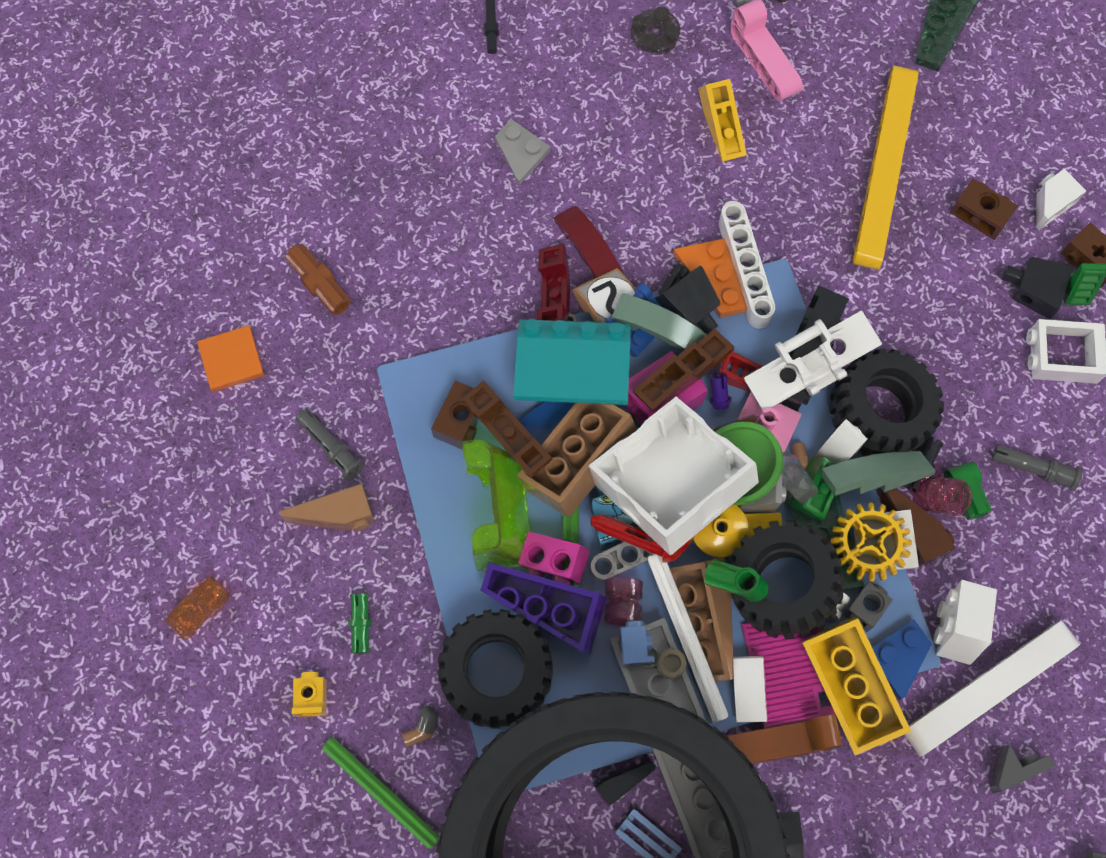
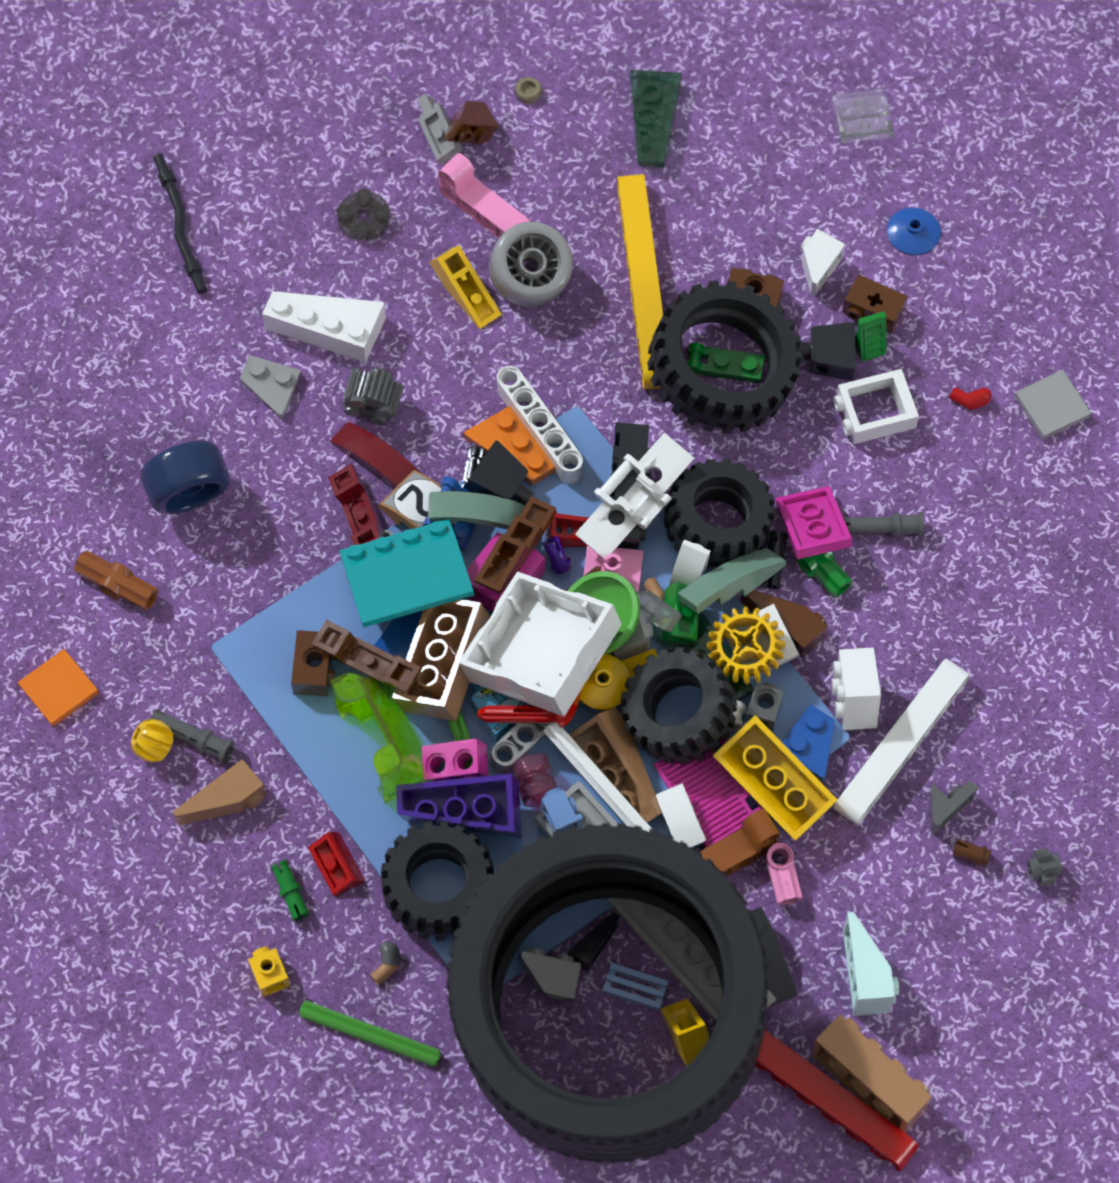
camera: 20 degrees left, 5 degrees down
(197, 607) = (125, 931): clear orange slope -> none
(289, 437) = (152, 740): none -> yellow piece
(409, 206) = (185, 477): none -> dark blue wheel
(412, 611) = (336, 863): none -> red slope
(572, 804) = (551, 976): none -> light grey slope
(588, 111) = (326, 322): none -> white wedge
(604, 188) = (372, 395): none -> dark grey brick
(671, 663) = (599, 814): dark tan tile -> none
(735, 579) = (631, 719): green piece -> none
(804, 106) = (545, 250): none -> light grey wheel
(830, 785) = (784, 876): none -> bright pink piece
(935, 264) = (725, 363): none -> green plate
(944, 495) = (801, 581): clear pink wheel -> none
(974, 225) = (752, 316): none -> black tyre
(974, 442) = (813, 522): none -> dark pink plate
(1026, 827) = (972, 852): none -> reddish brown pin

